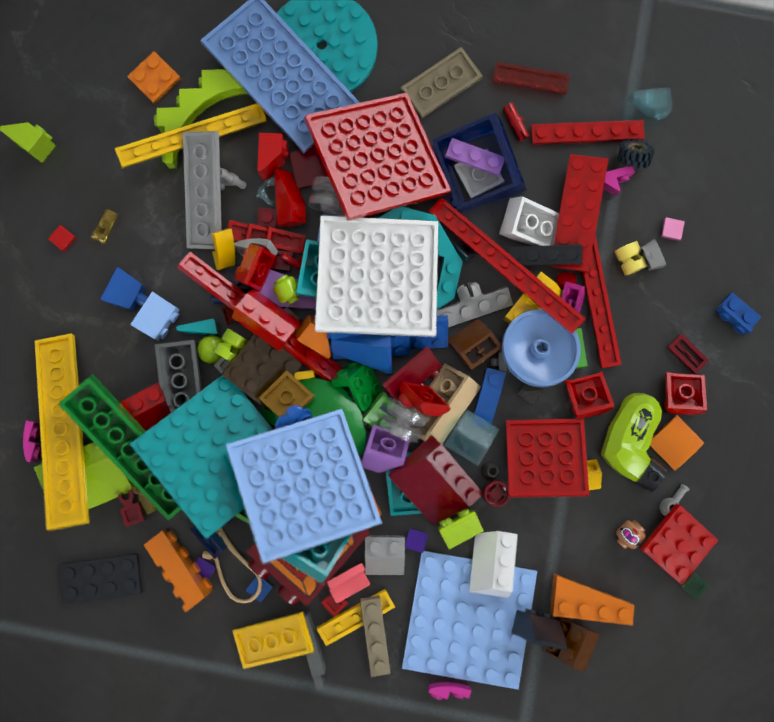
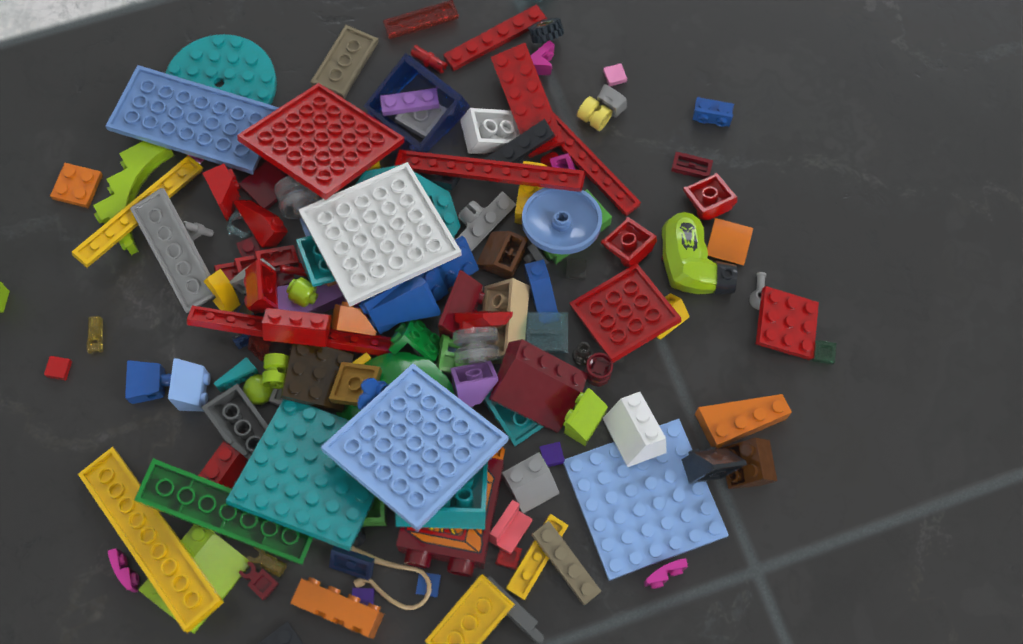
camera: 30 degrees left, 15 degrees down
(630, 534) = (740, 338): nougat head -> none

